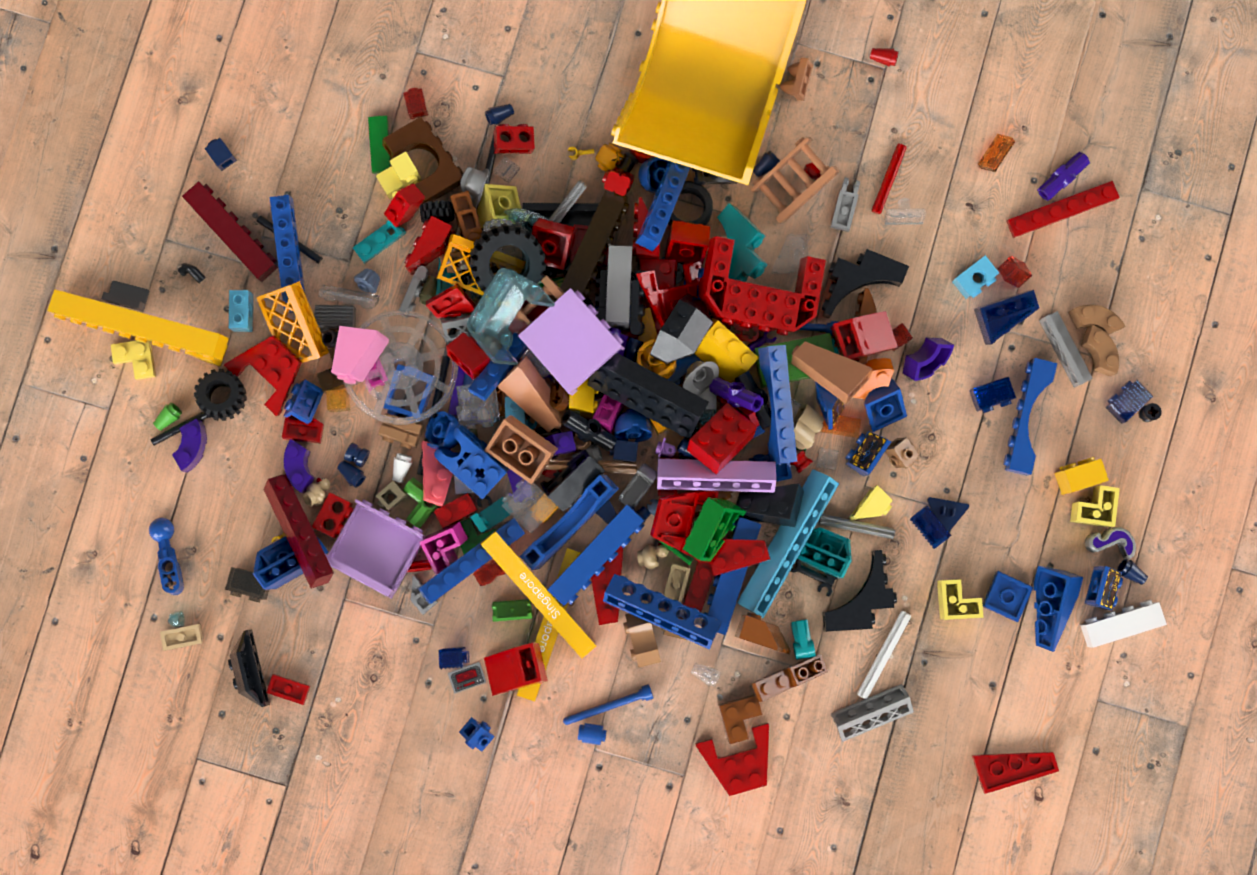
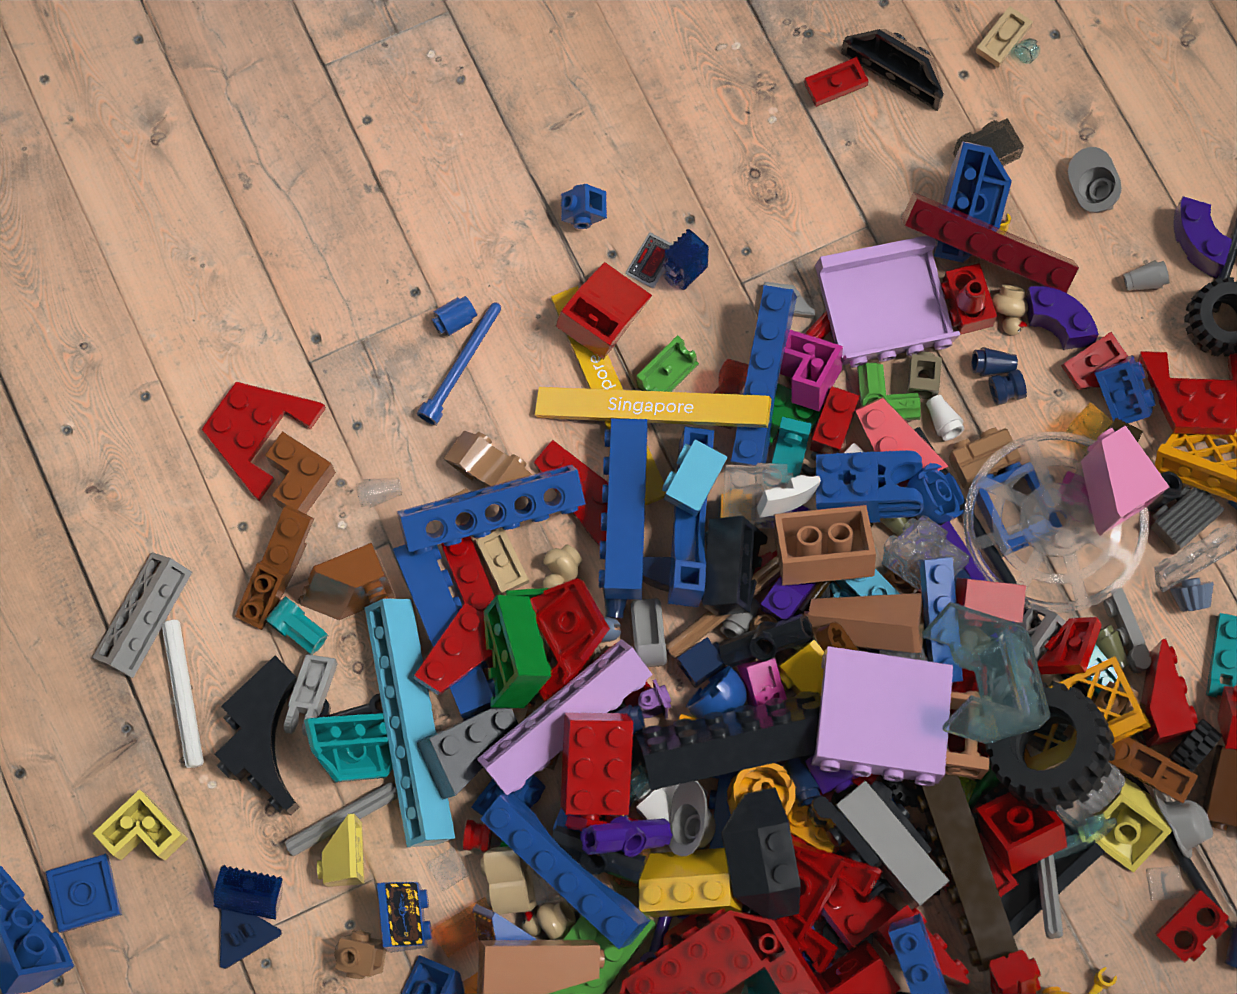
camera: 145 degrees right, 10 degrees down
(162, 531) = (1137, 124): blue beam -> none
(214, 519) = (1094, 179): none -> light grey piece
(236, 449) = (1148, 276): none -> light grey cone
(338, 512) = (972, 297): none -> red cone
(516, 486) = (797, 492): none -> white slope
(554, 535) = (694, 478): none -> medium azure brick
(800, 393) = (551, 918): none -> tan animal
(823, 599) = (310, 690): none -> light grey hinge

